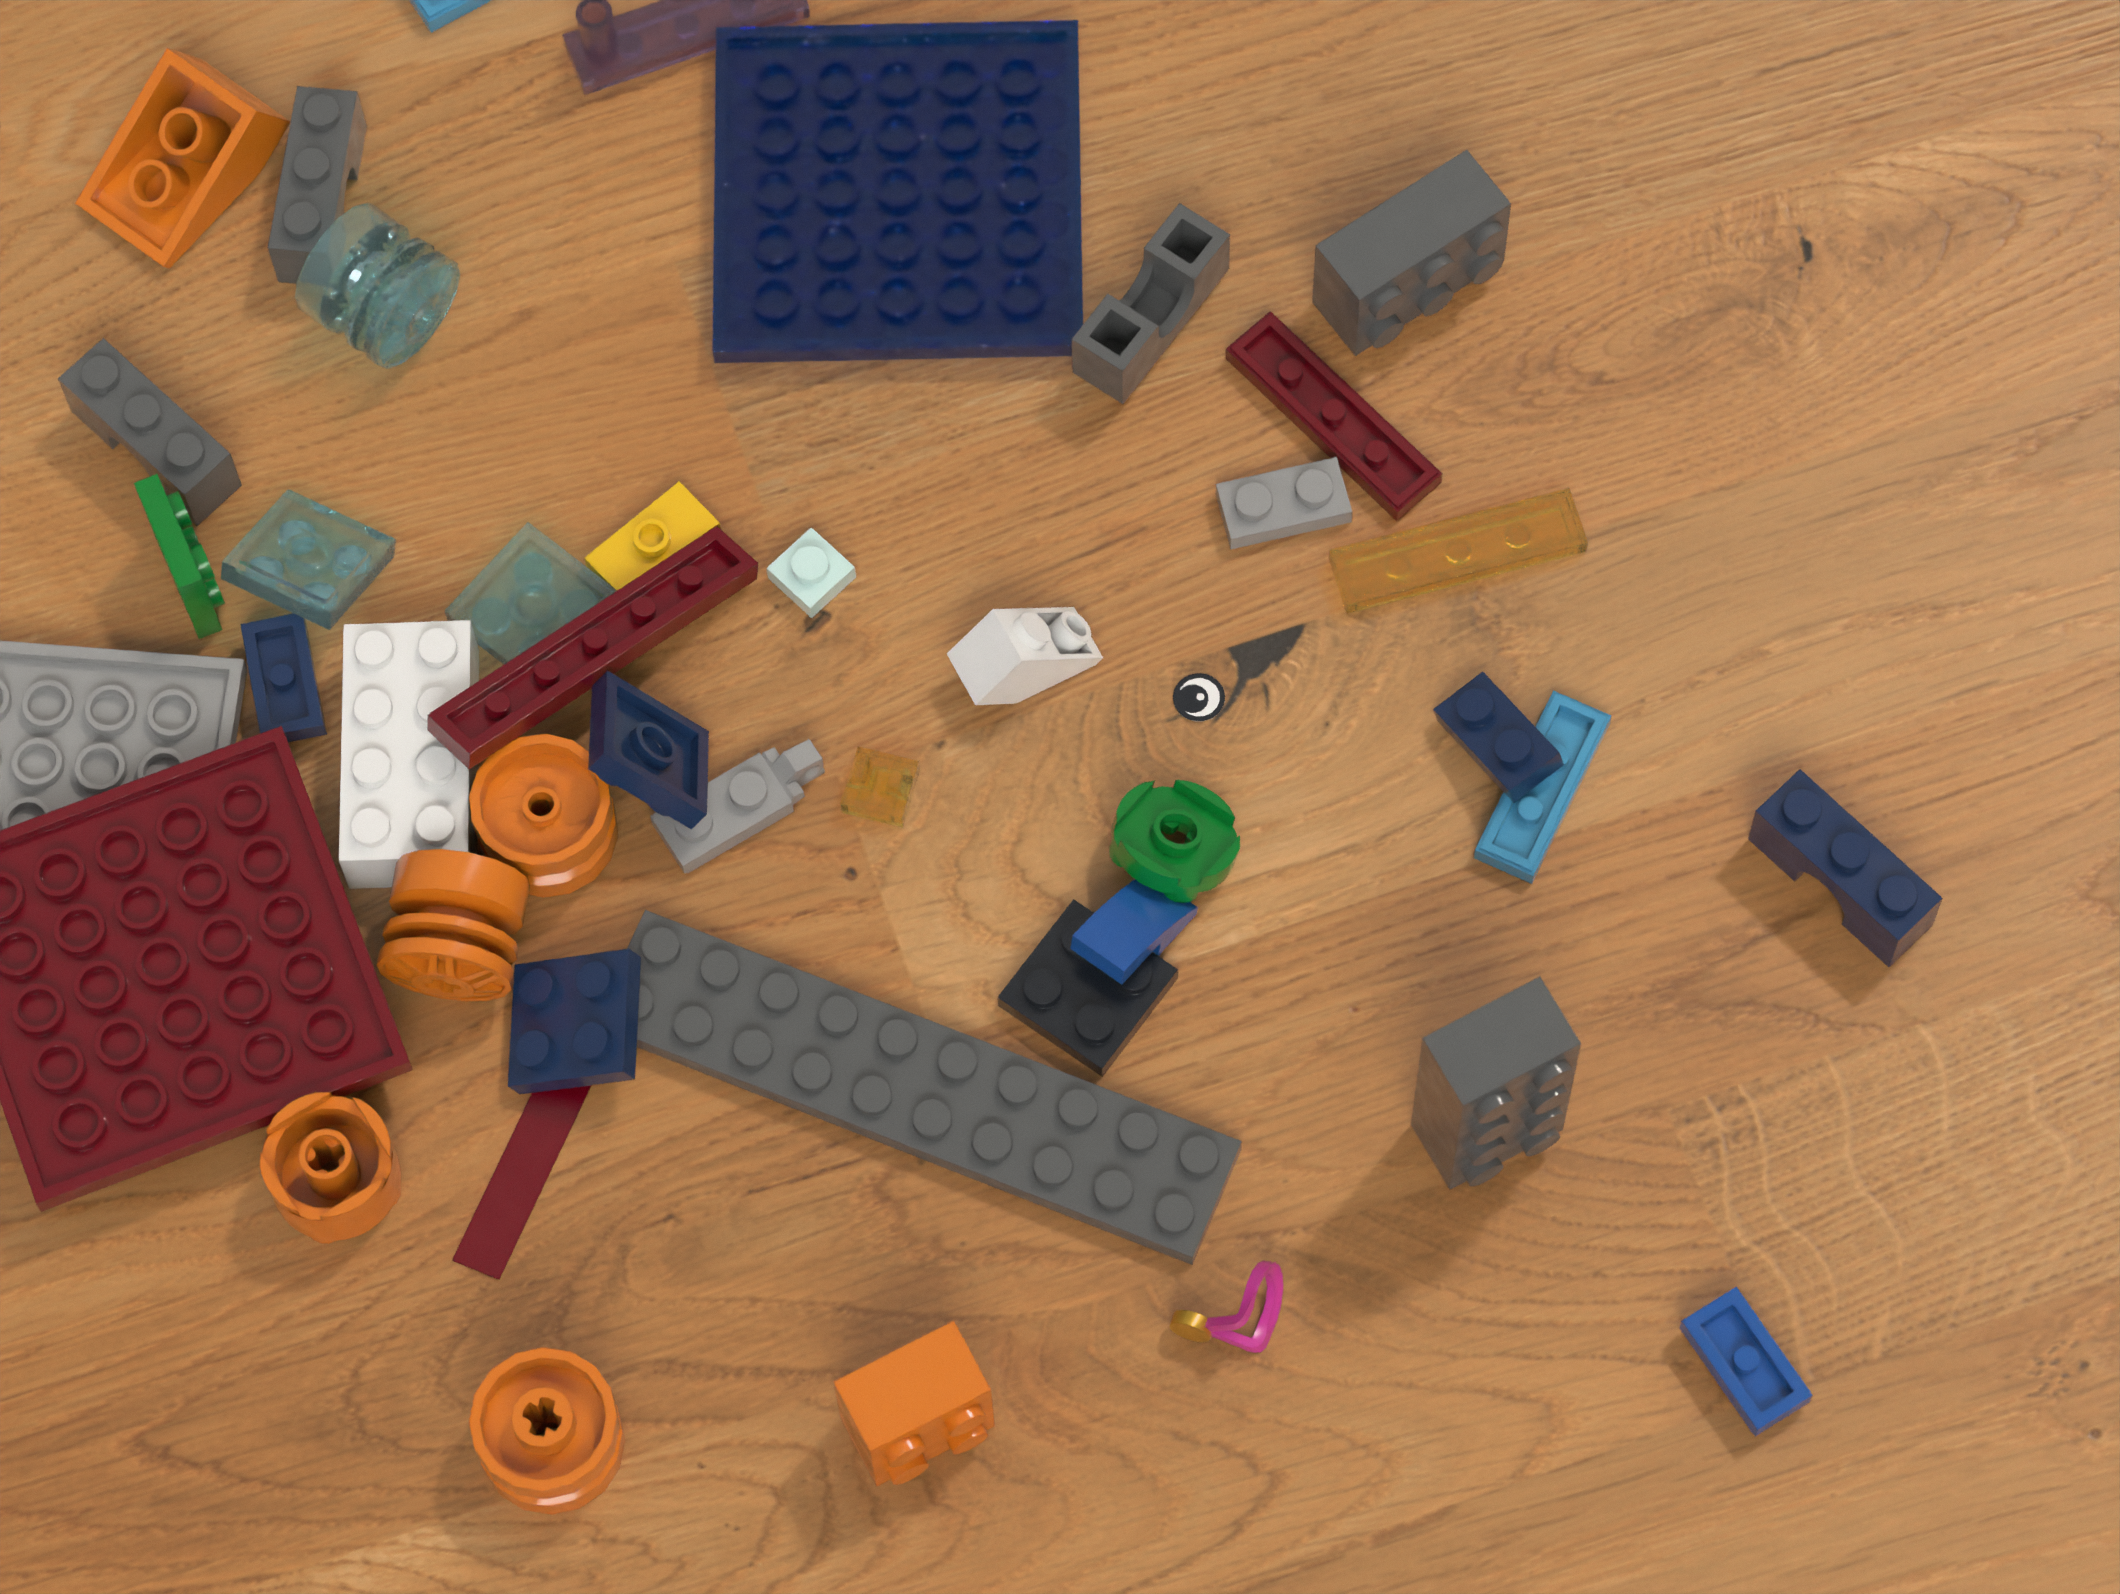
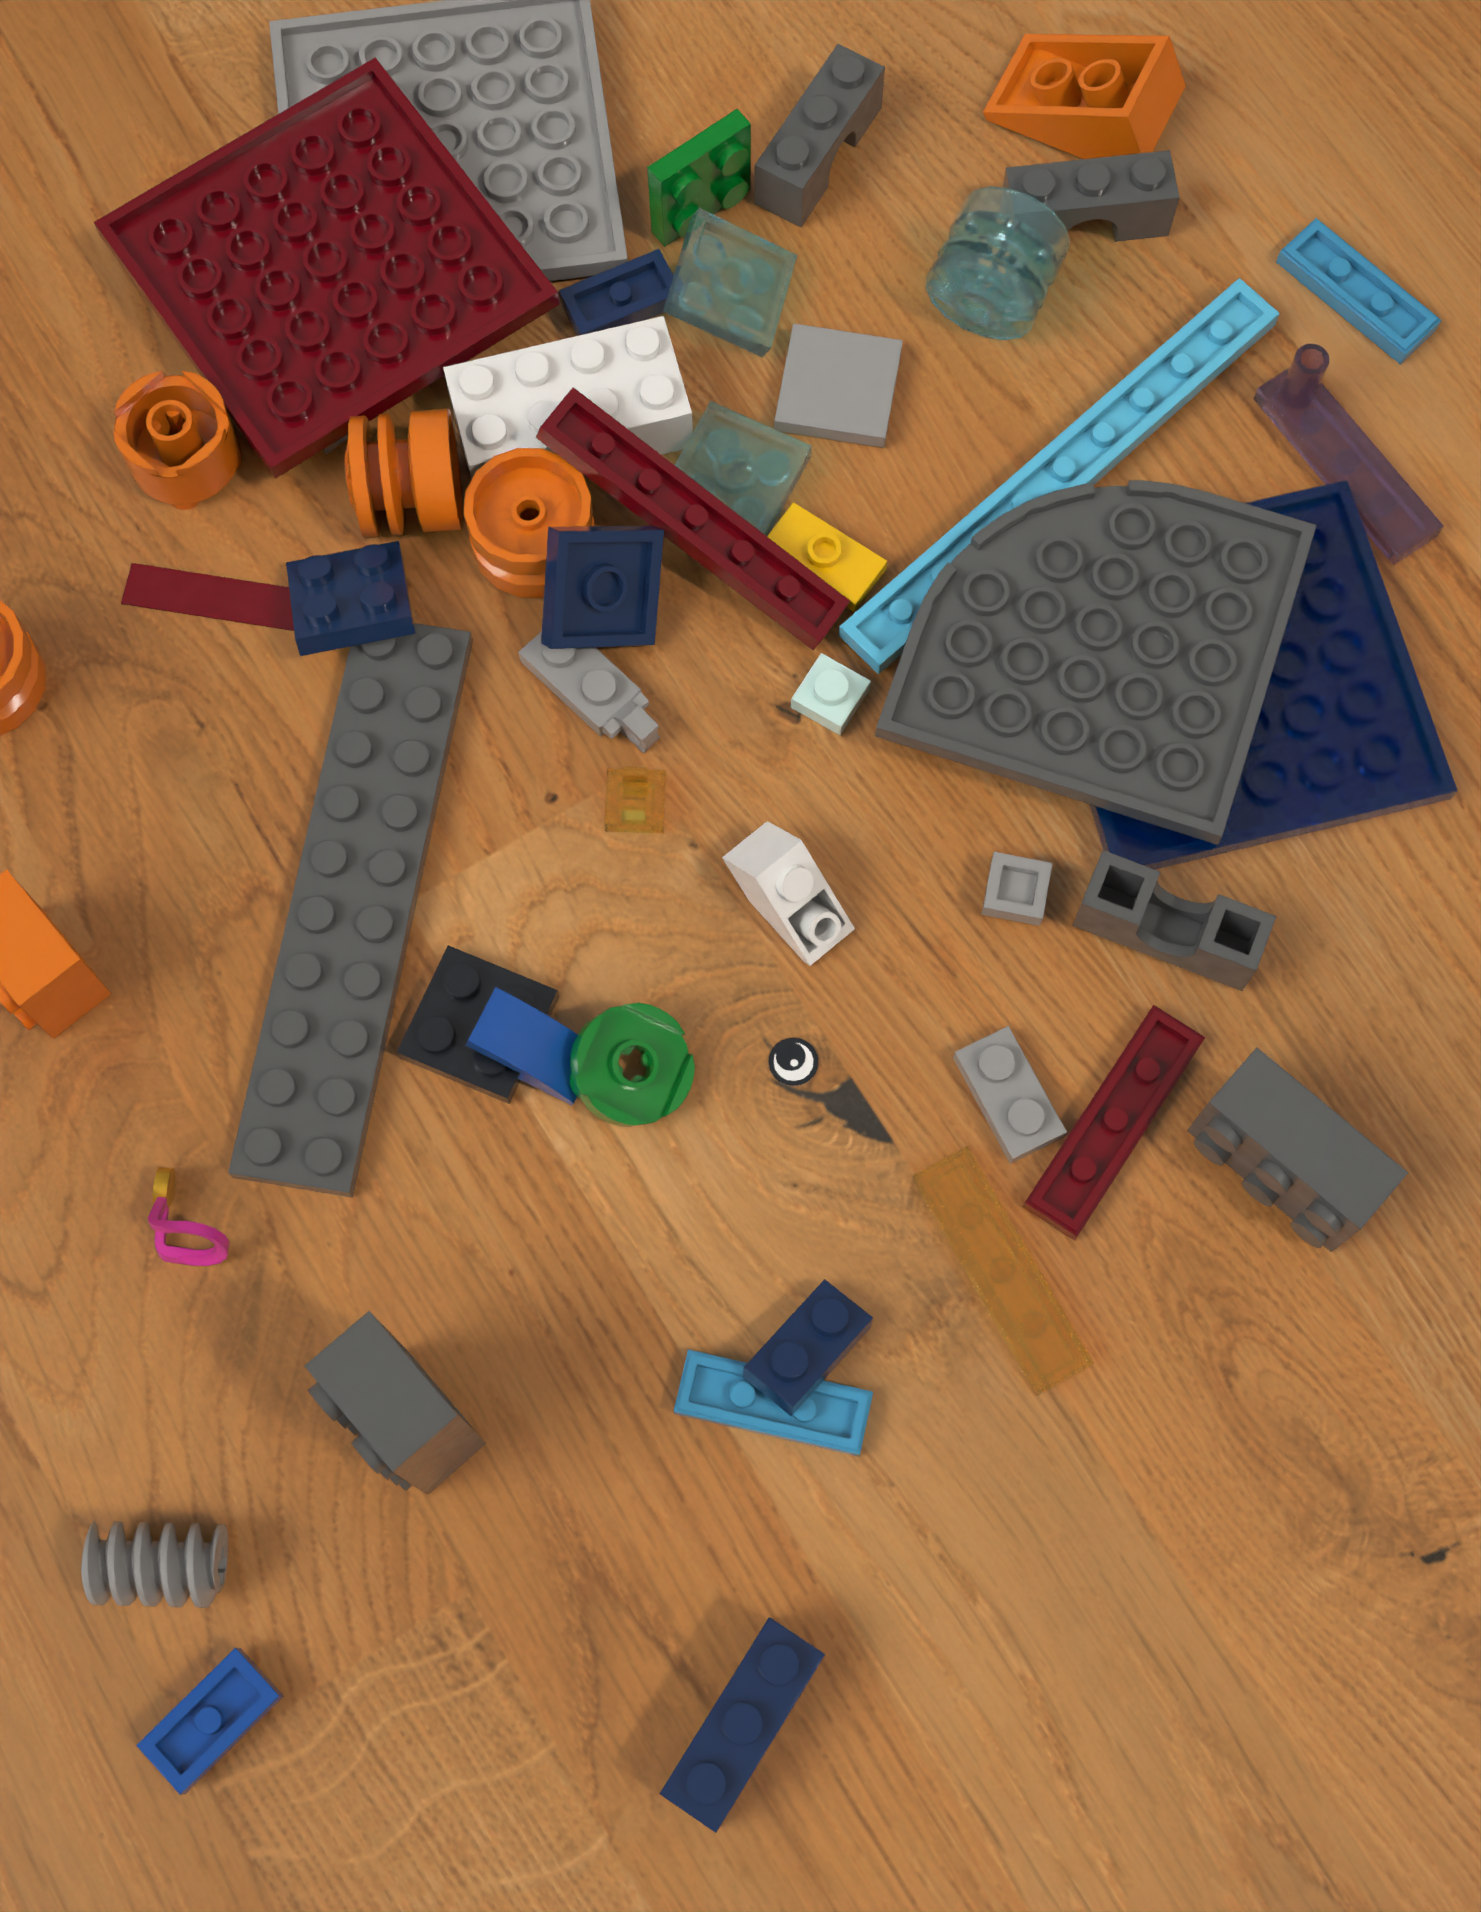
camera: 75 degrees right, 5 degrees up
(454, 486) = (838, 385): none -> light grey tile
(628, 295) = (1076, 455): none -> medium azure plate
(846, 290) = (1106, 648): none -> dark grey plate
(1074, 442) = (1017, 888): none -> light grey plate
(1581, 1379) = (154, 1567): none -> light grey piece

